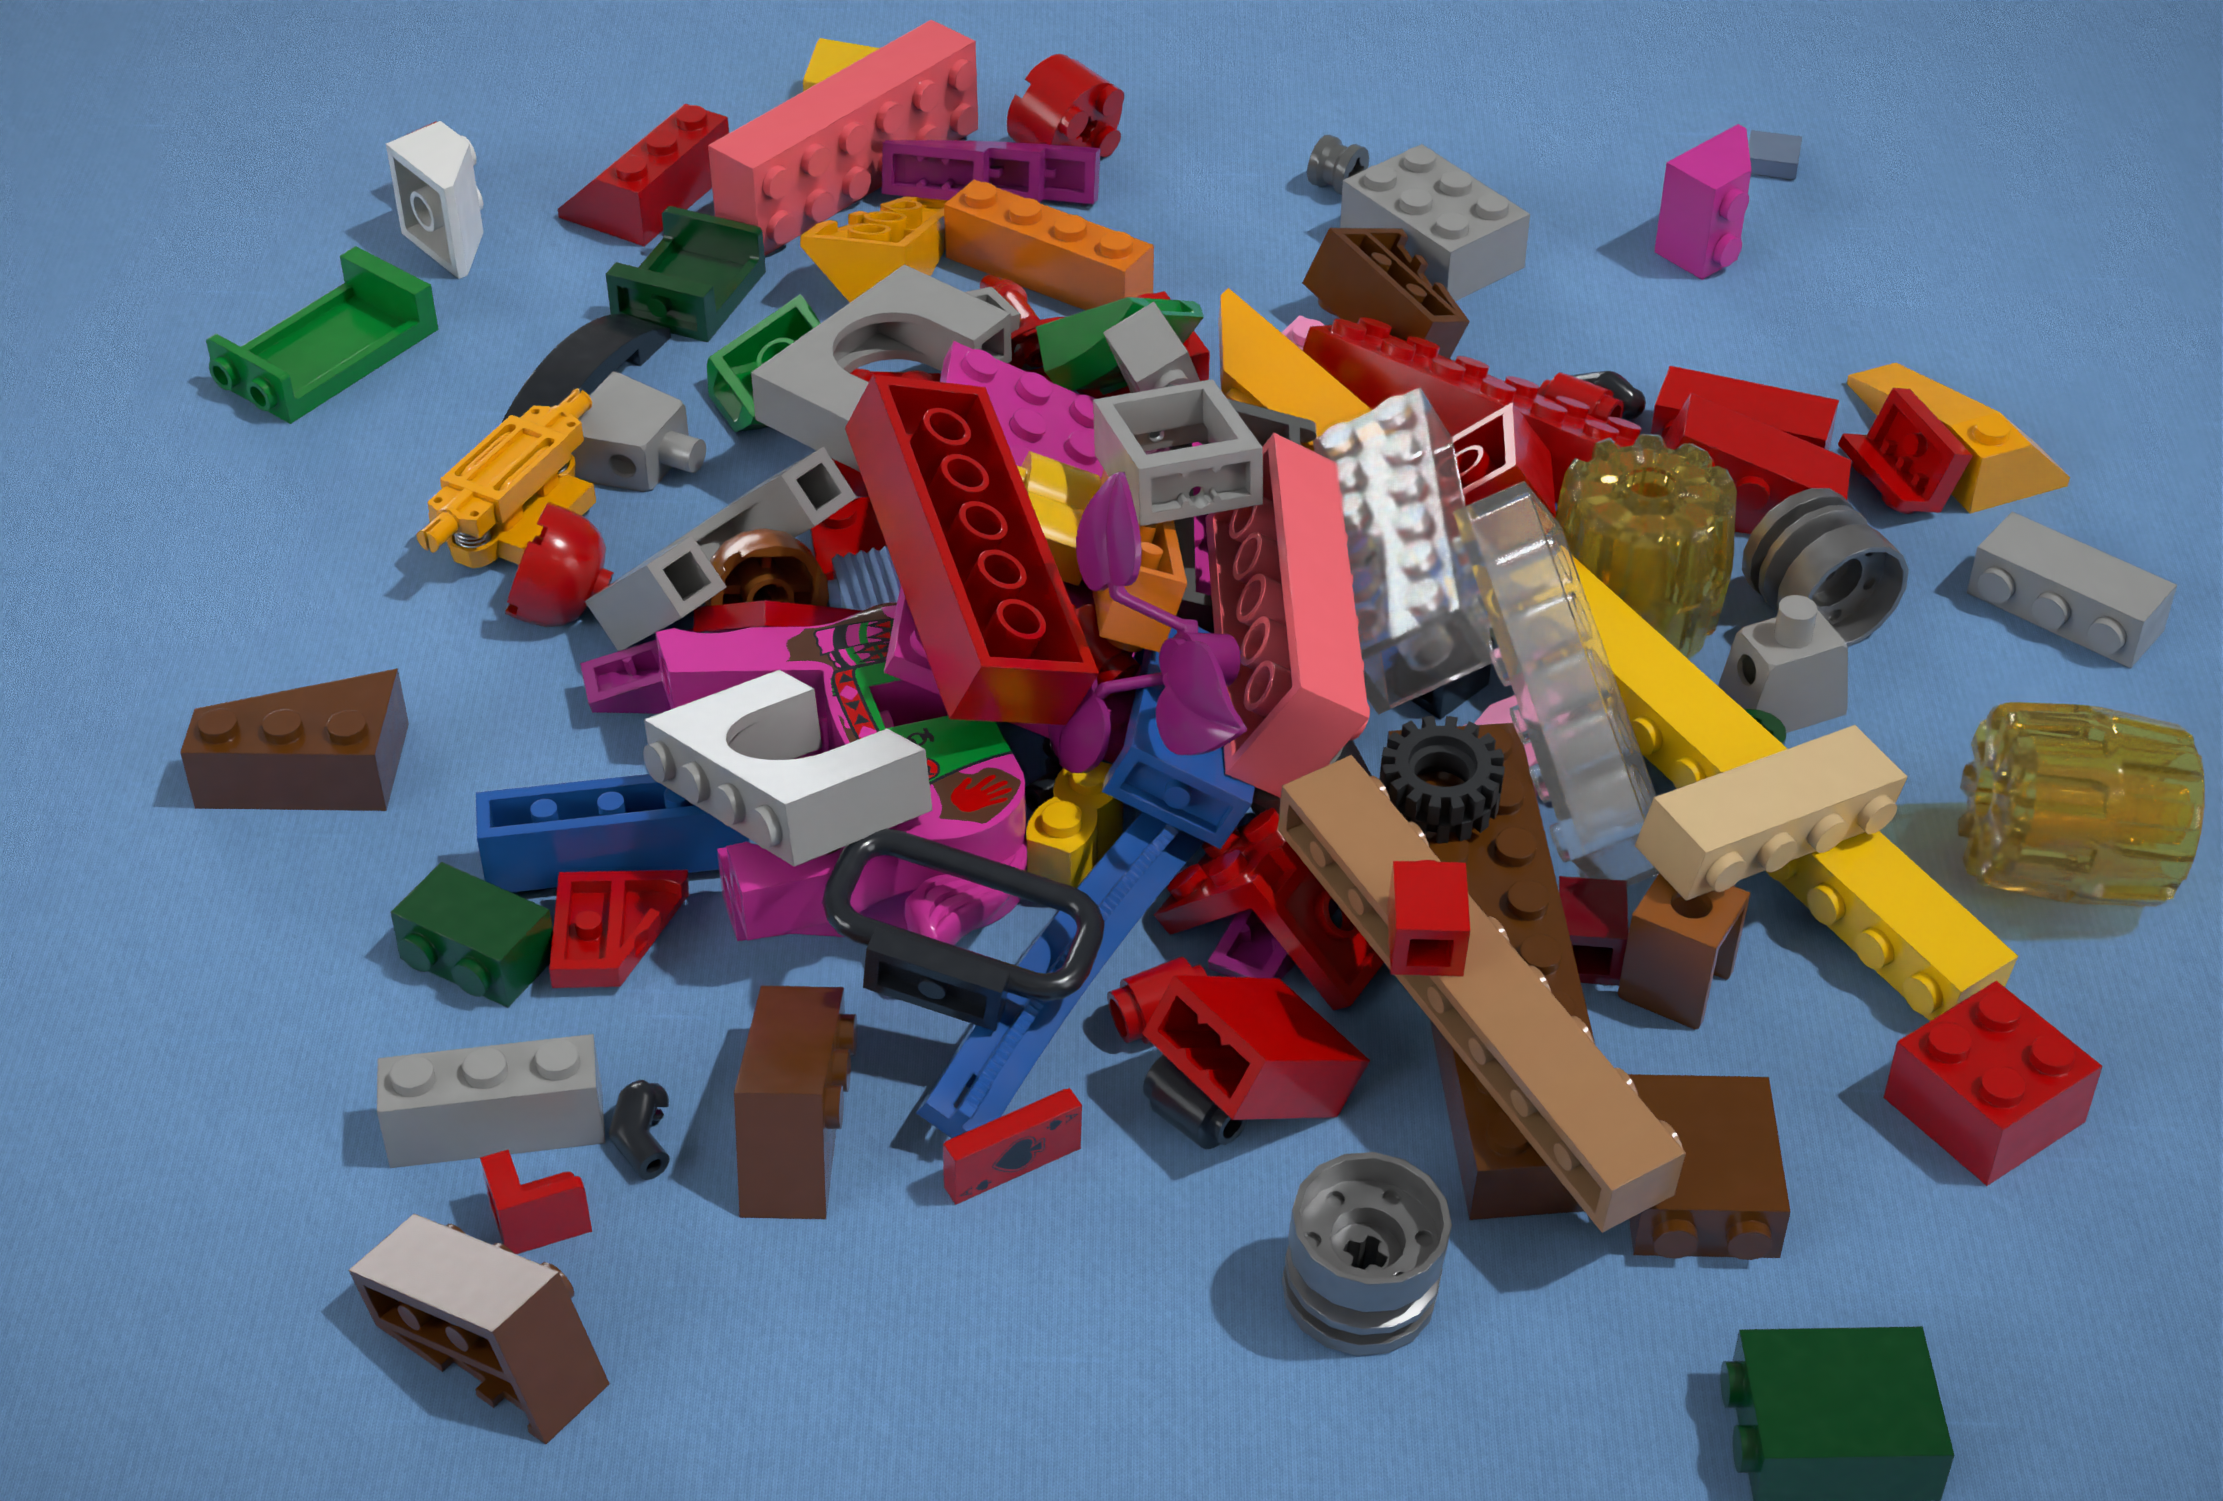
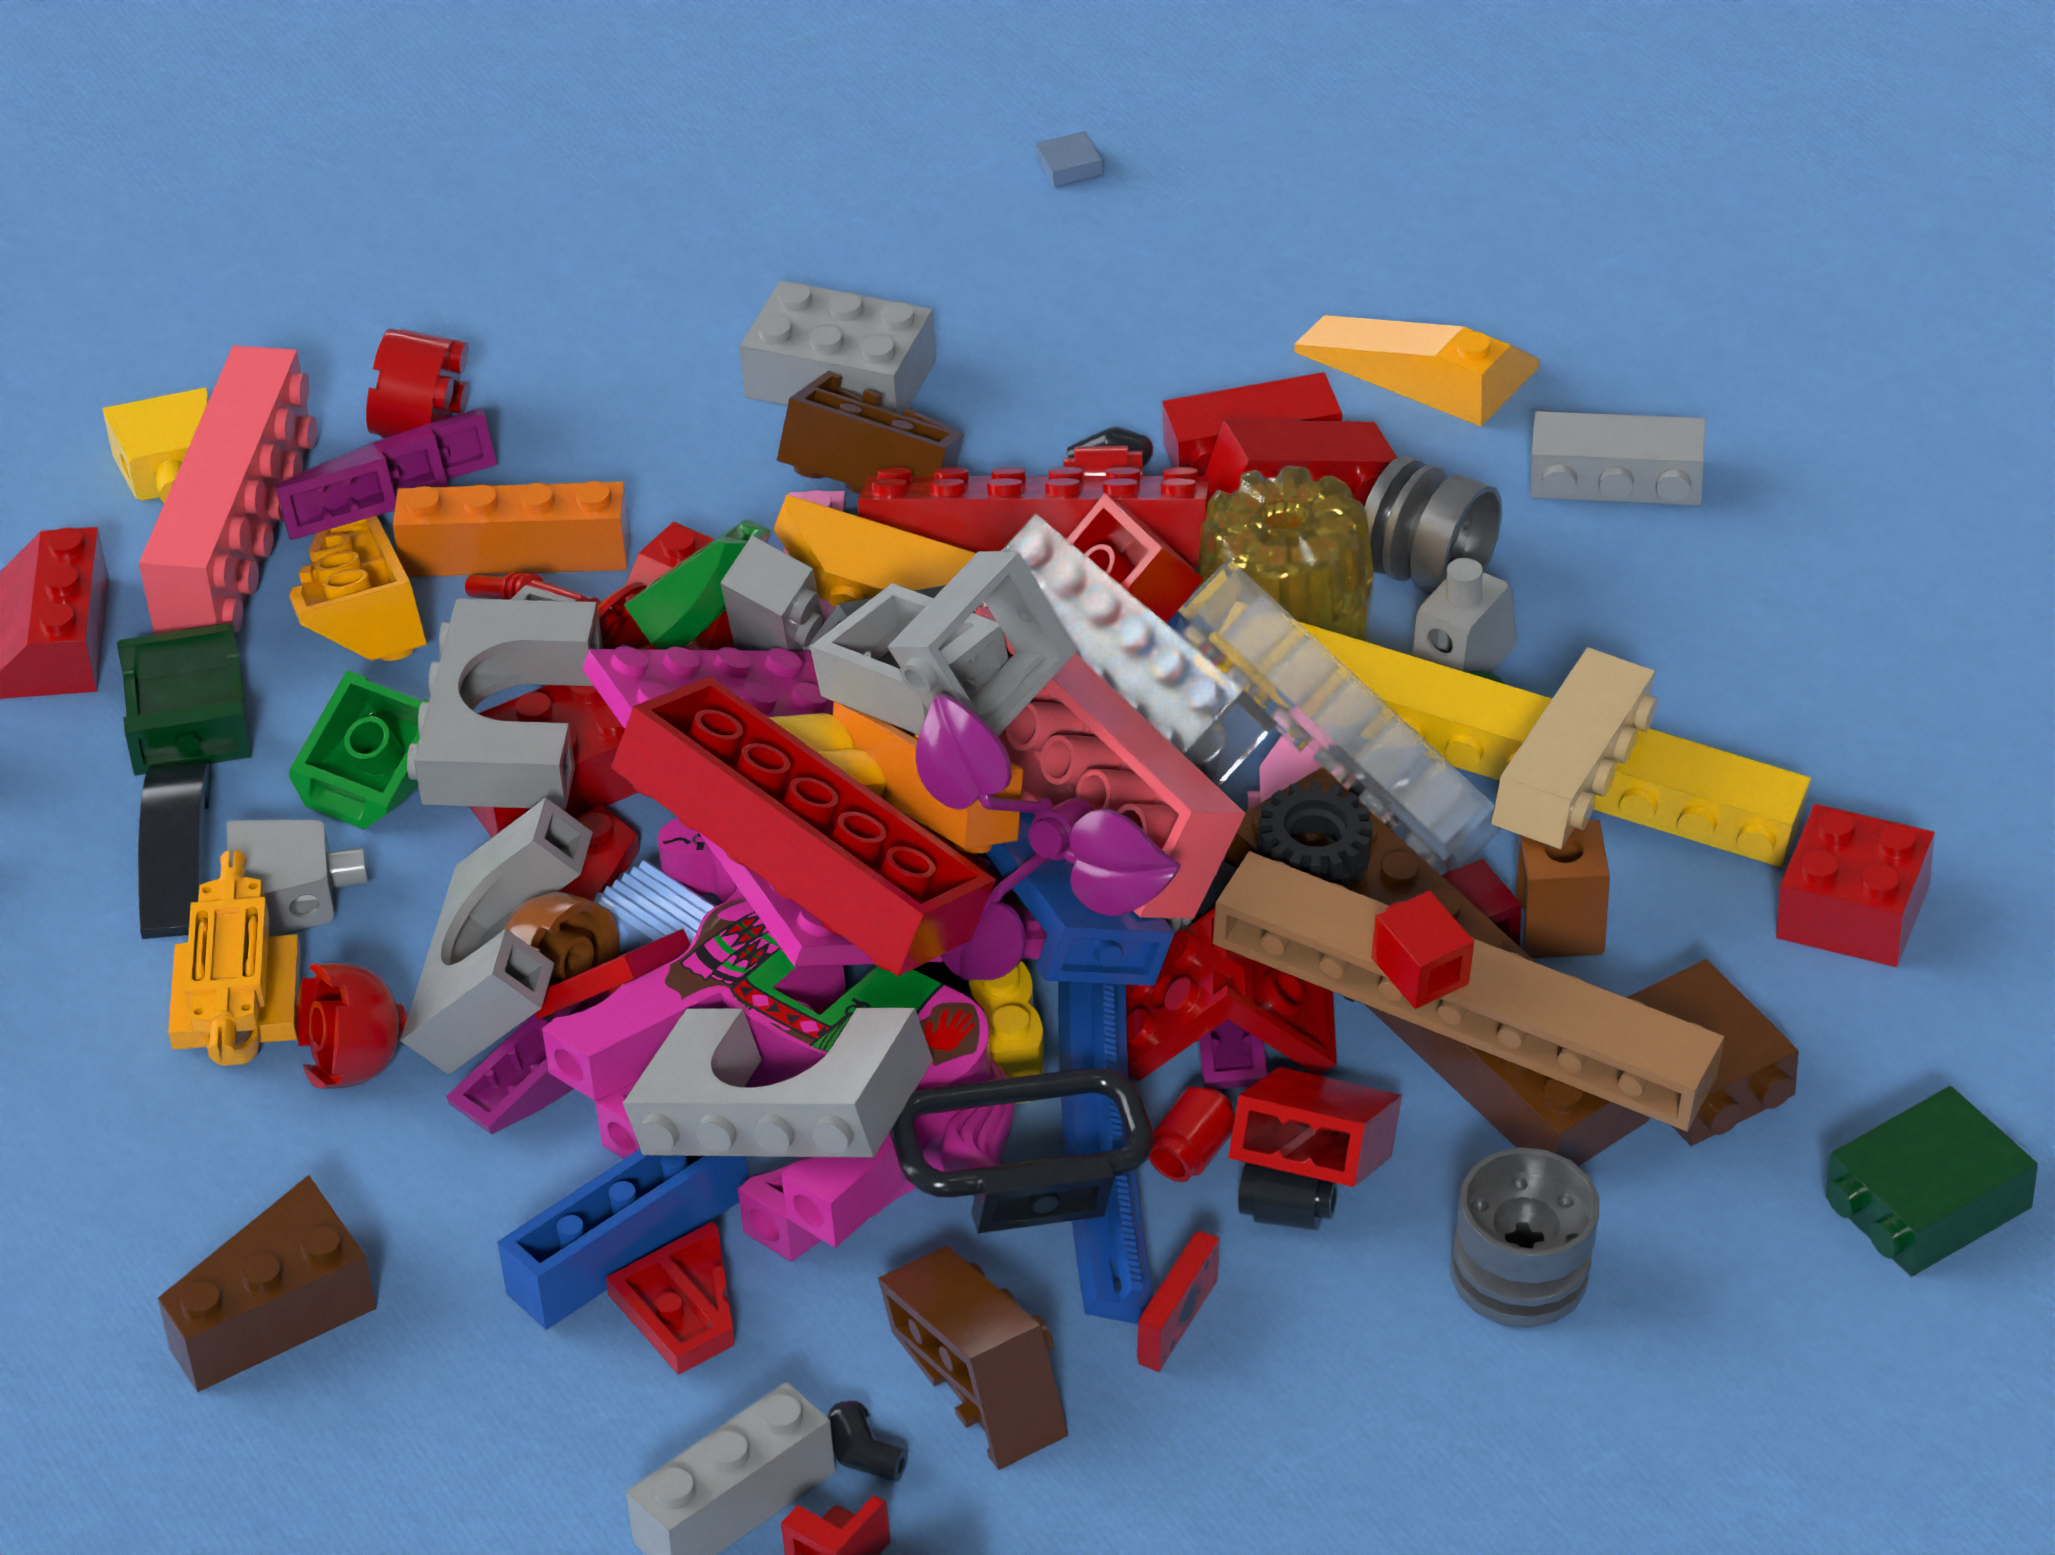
camera: 30 degrees left, 0 degrees up
(473, 934) = (578, 1363): dark green brick -> none
(1276, 441) = (1025, 618): none -> light grey window
(1334, 162) = (700, 331): dark grey wheel -> none
(1705, 204) = (1074, 234): dark pink slope -> none
(1908, 455) = (1410, 395): red bracket -> none
(2082, 804) = (1776, 635): clear yellow wheel -> none

